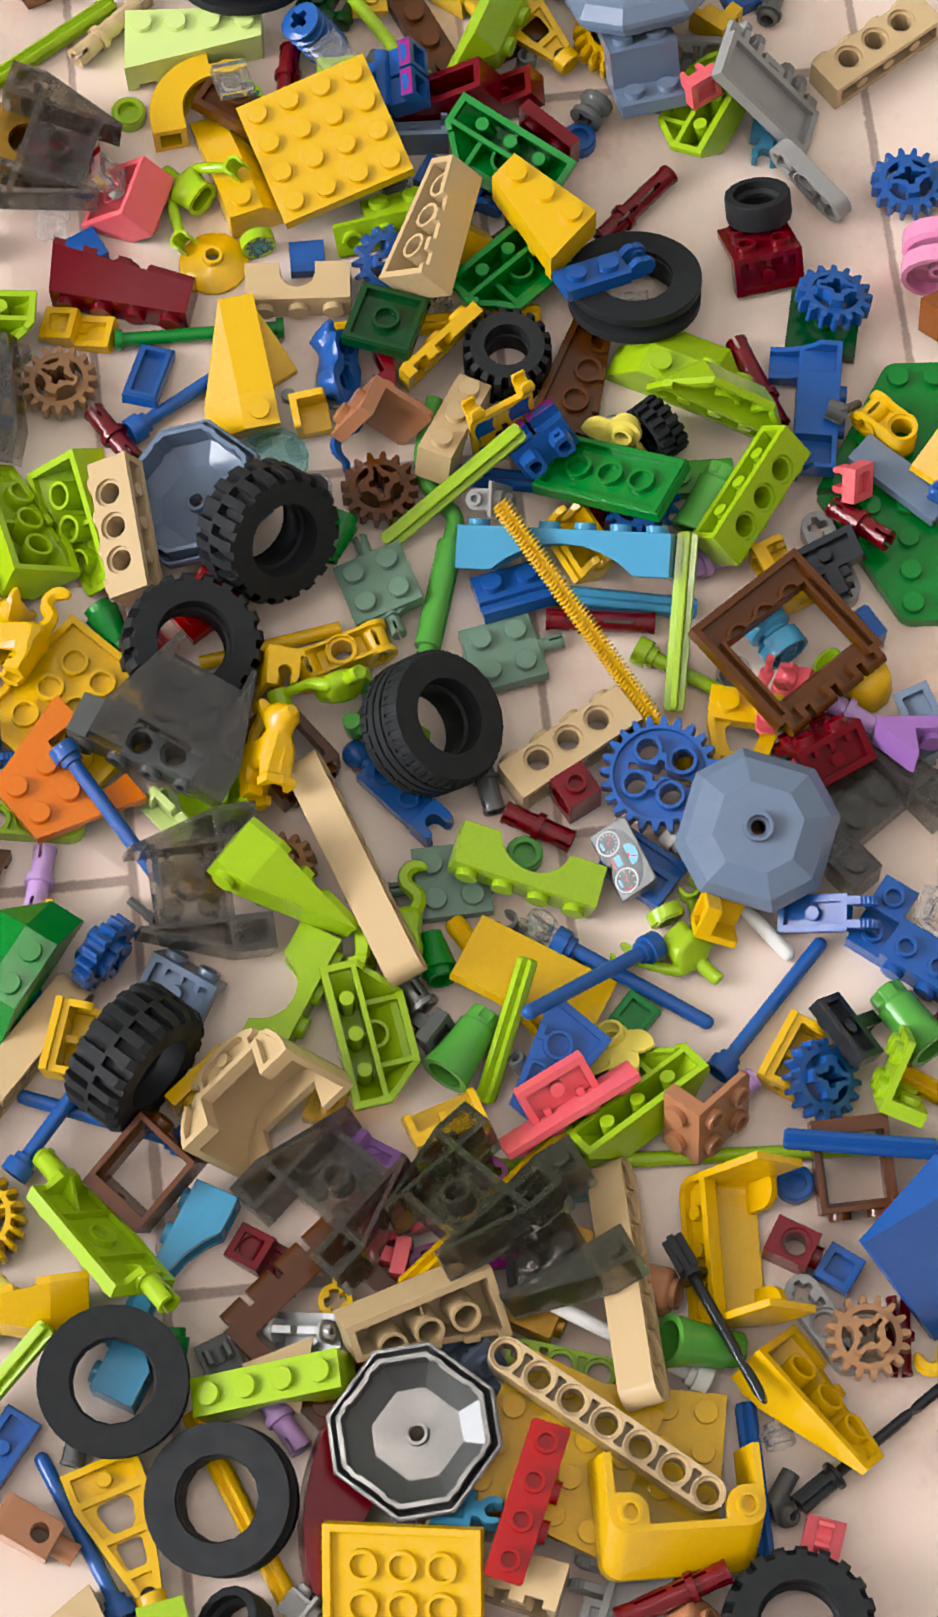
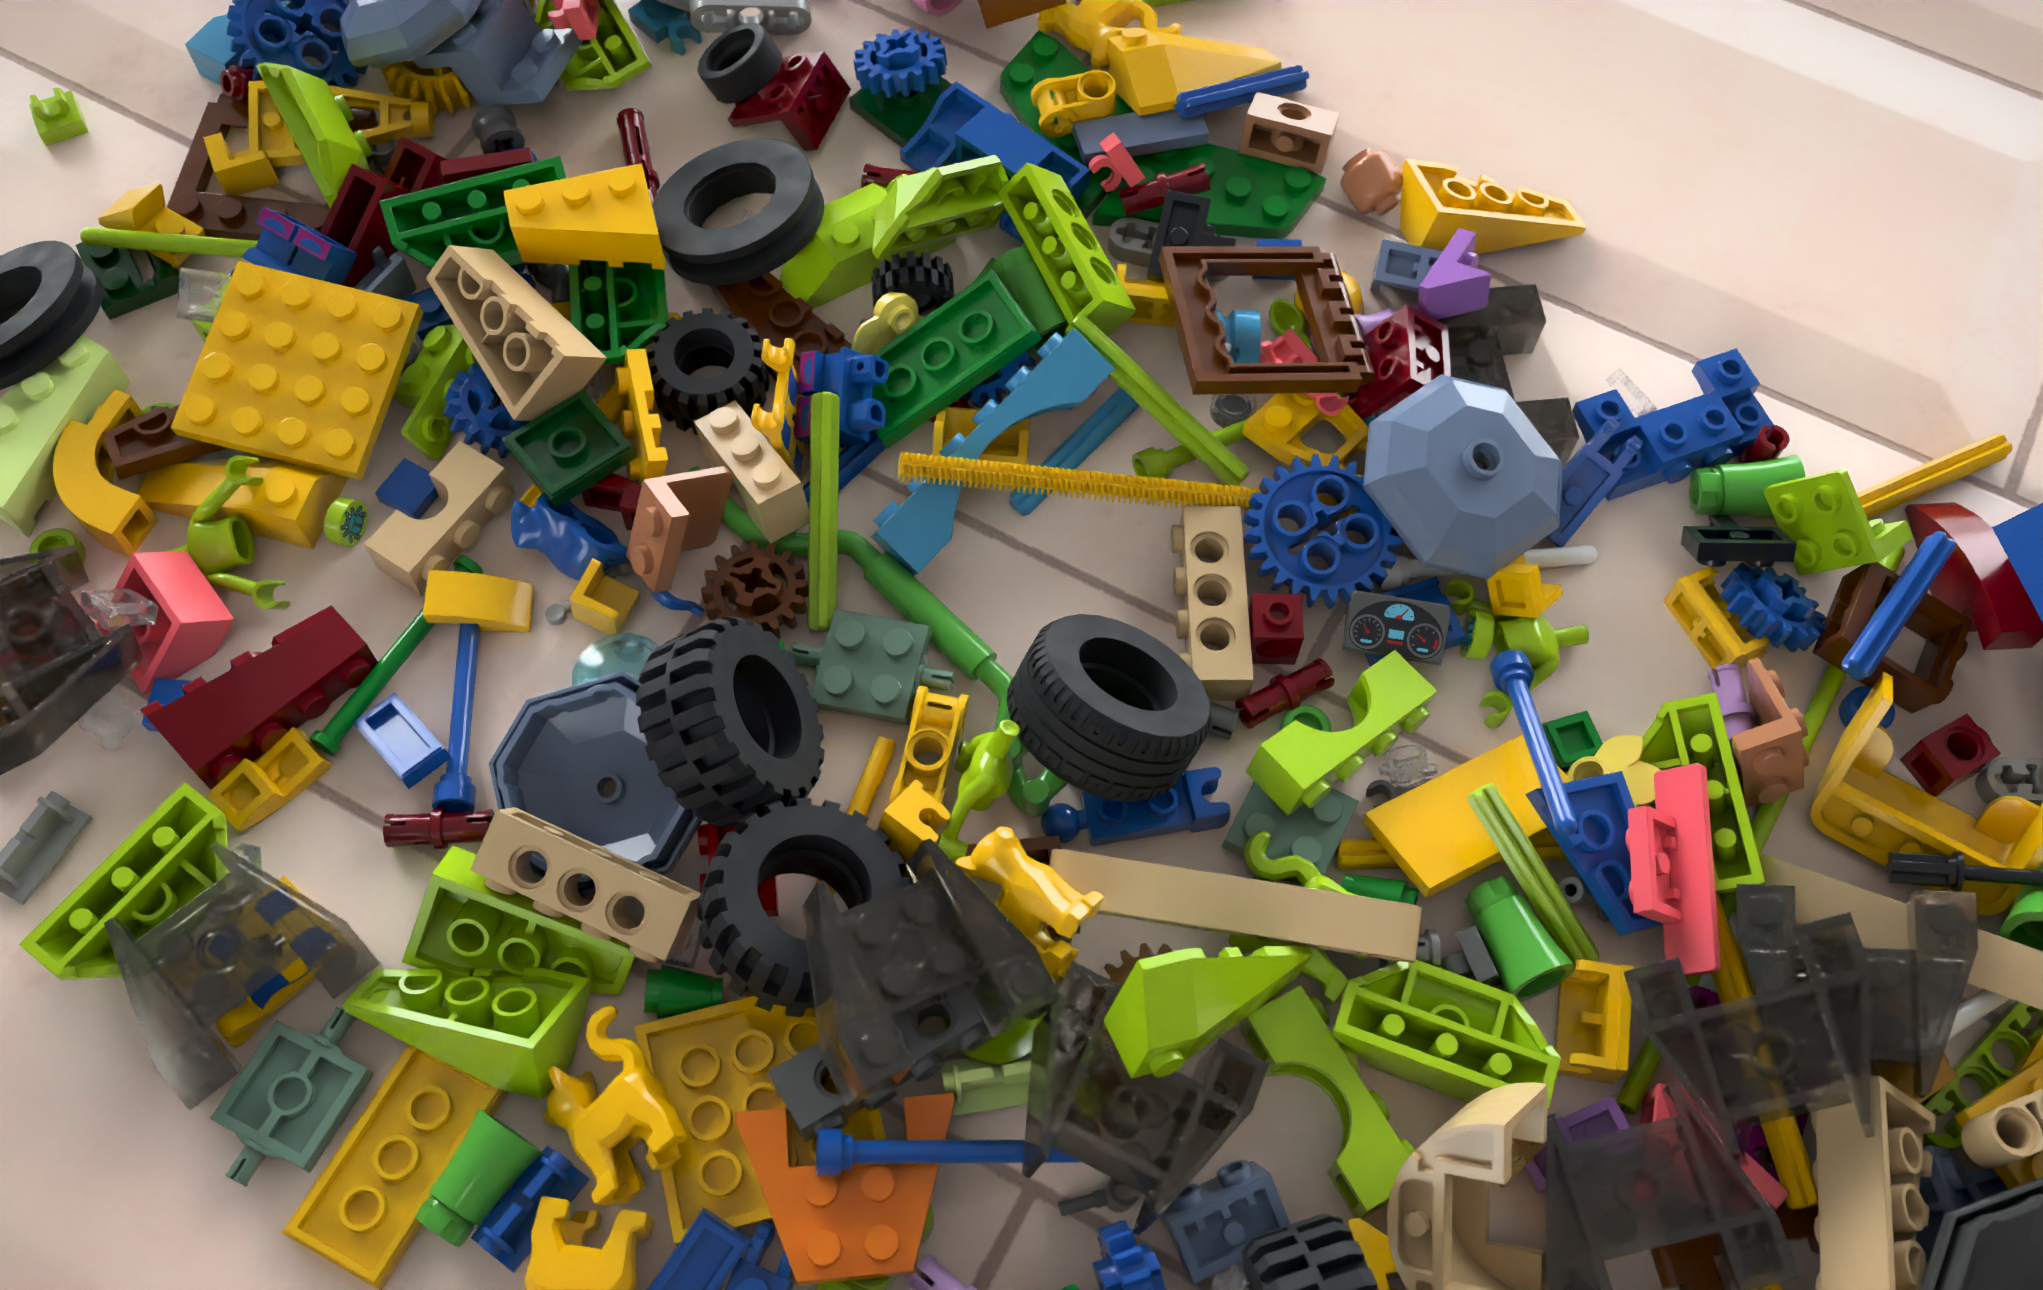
camera: 60 degrees left, 5 degrees down
(61, 386) = (345, 844): medium nougat gear -> none
(217, 275) = (345, 587): yellow dish -> none
(232, 79) = (132, 409): clear plate -> none
(239, 377) = (491, 635): yellow wedge -> none
(288, 68) = (173, 366): dark red pin -> none
(306, 26) = (150, 303): blue piece -> none
(486, 499) = (876, 481): light grey hinge -> none
(509, 652) = (1046, 588): sand green plate -> none
(510, 592) = (982, 543): blue plate -> none
(569, 946) = (1452, 753): blue piece -> none
(603, 272) = (704, 215): blue hinge -> none
(643, 620) = (1051, 517): dark red pin -> none
(725, 1063) = (1685, 681): blue piece -> none
(838, 411) = (1031, 127): dark grey hand -> none
(839, 1269) = (2004, 725): blue plate -> none

